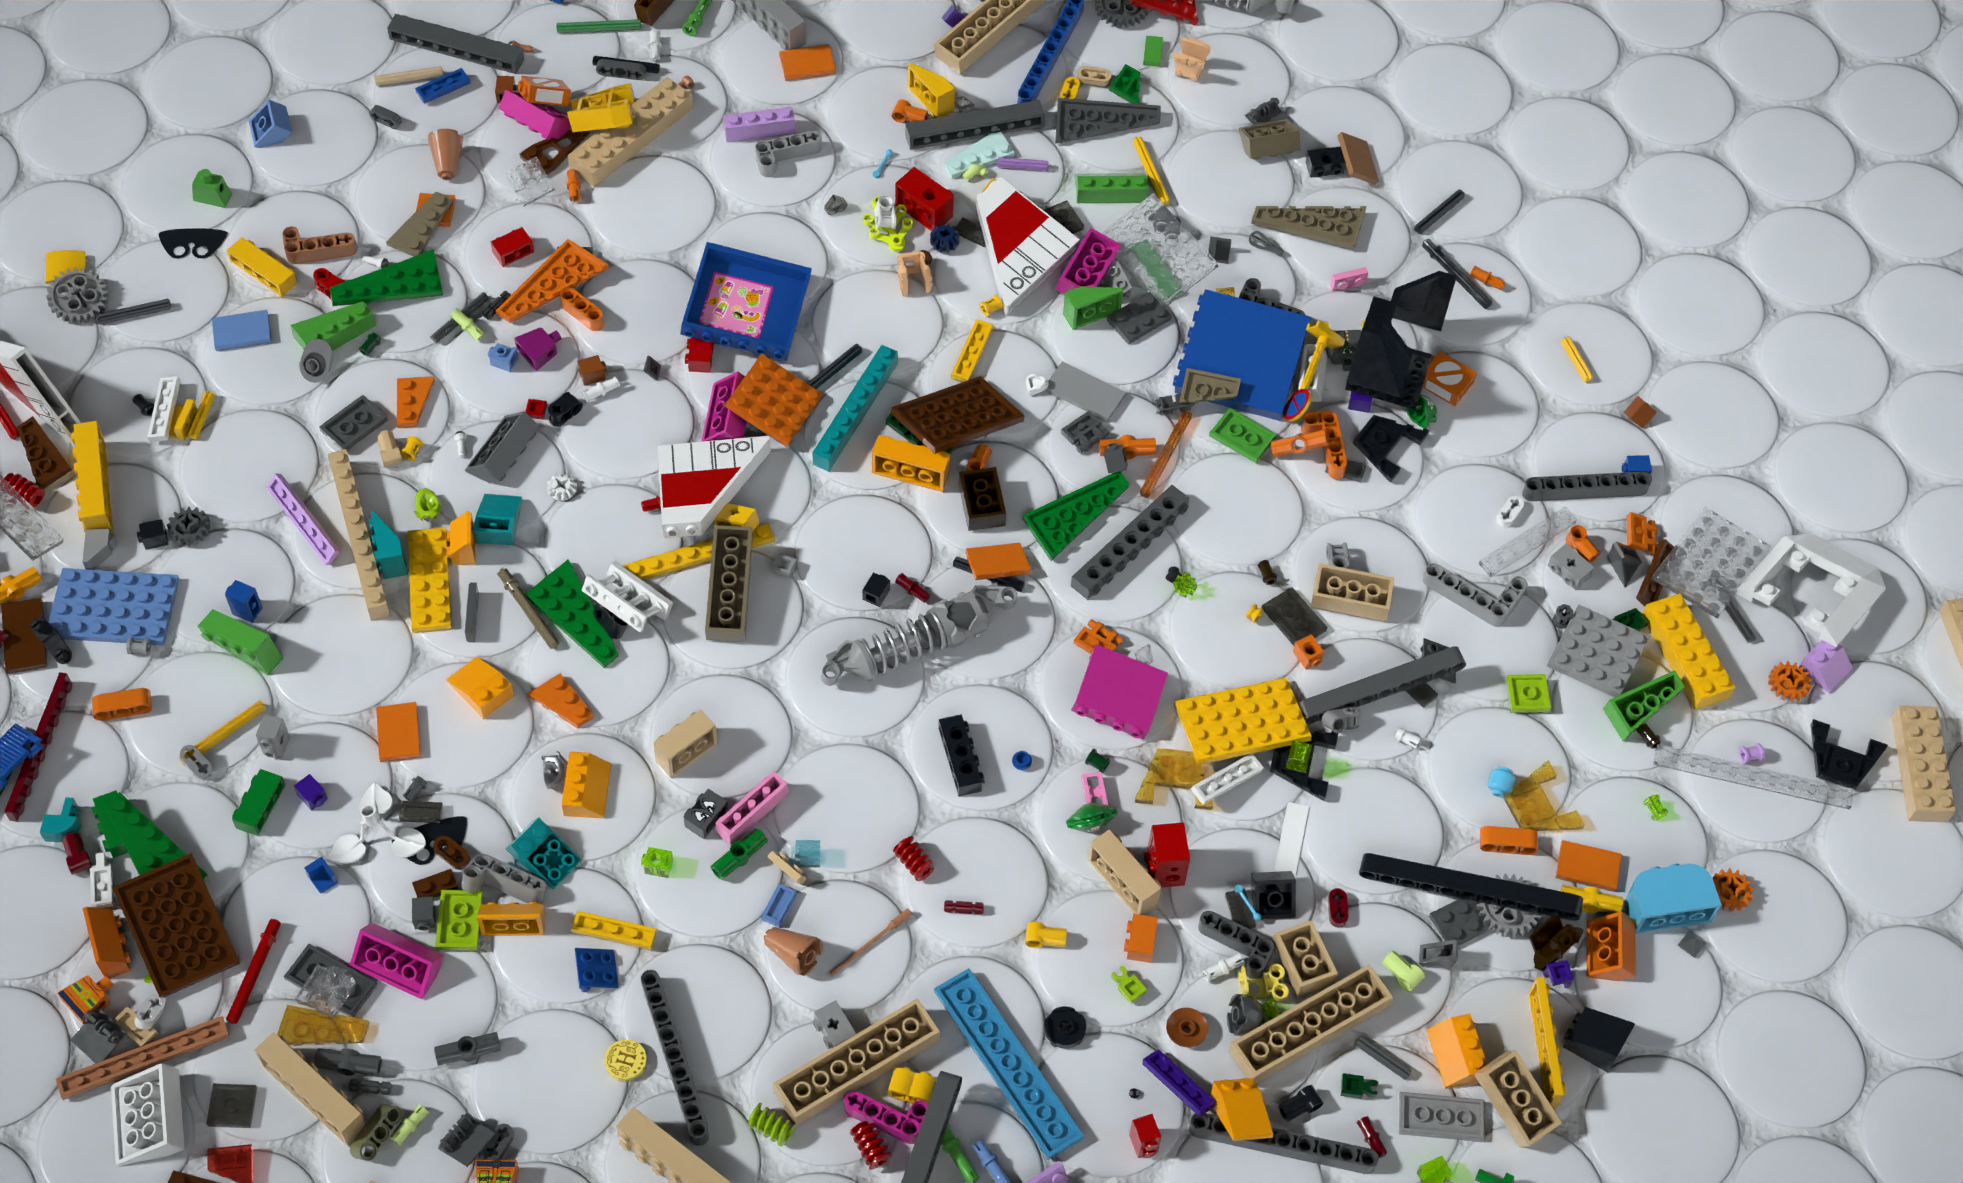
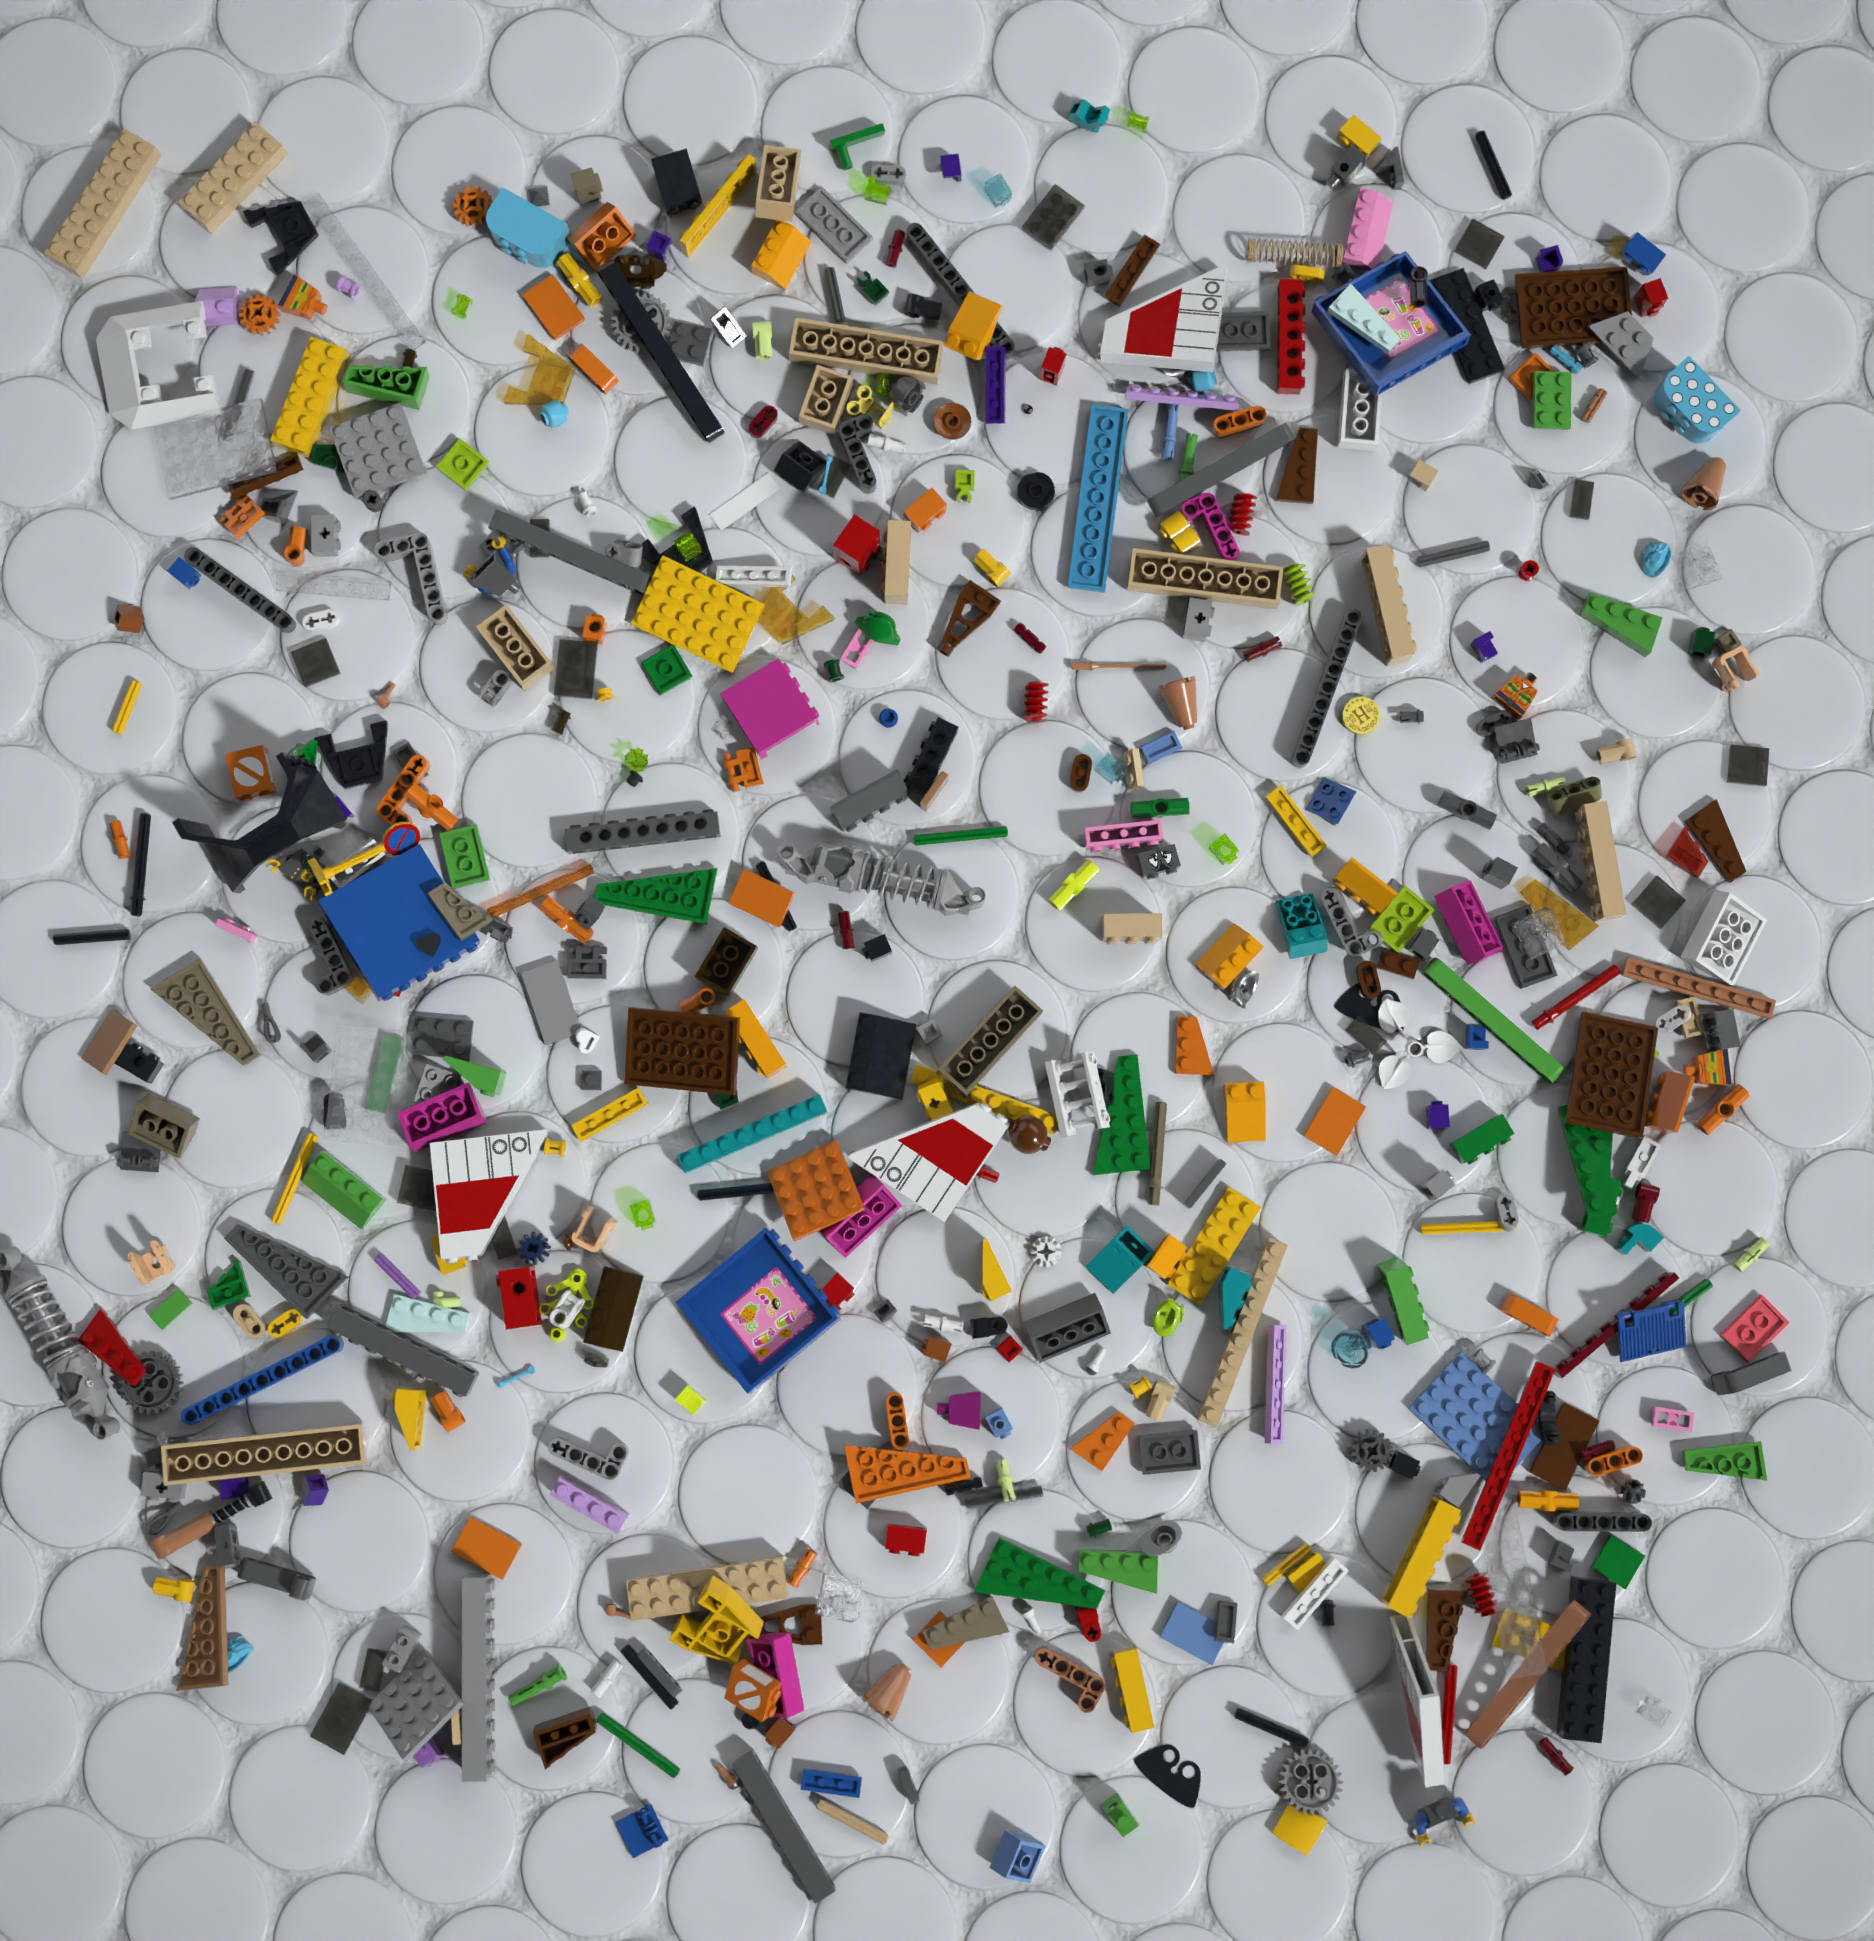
camera: 140 degrees left, 25 degrees up
(48, 984) = (1714, 1117): none -> orange piece
(68, 591) = (1508, 1455): none -> red plate
(222, 348) = (1225, 1622): none -> dark grey tile
(260, 578) = (1351, 1347): none -> clear light blue cylinder
(316, 898) = (1493, 1020): none -> bright green beam
(399, 1012) = (1498, 872): none -> dark grey brick
(578, 1092) = (1411, 716): none -> dark grey pin
(590, 438) = (993, 1279): none -> yellow slope
(642, 544) = (1028, 1135): none -> reddish brown brick
(747, 229) = (690, 1399): none -> neon yellow panel
(758, 1048) = (1262, 649): none -> dark red pin
(760, 746) = (1073, 885): none -> neon yellow piece
(807, 522) = (880, 1056): none -> black slope
(828, 835) = (1080, 773): none -> reddish brown plate
(853, 240) = (613, 1309): none -> dark brown slope
(882, 720) = (961, 835): none -> green axle
(887, 308) = (643, 1205): none -> clear neon green brick
(934, 725) = (934, 791): none -> medium nougat tile
(979, 683) = (869, 801): none -> dark grey slope
(1006, 364) = (591, 1080): none -> dark grey plate
(1030, 904) = (981, 600): none -> reddish brown plate
(1206, 350) = (428, 944): none -> clear smoke tile
(1226, 668) = (666, 669): none -> green tile
(1408, 491) = (382, 700): none -> nougat hand
(1422, 629) = (496, 572): none -> dark grey torso
(1483, 482) = (315, 662): none -> clear smoke tile
(1663, 972) = (587, 185): none -> dark tan brick
(1774, 717) = (301, 299): none -> orange torso

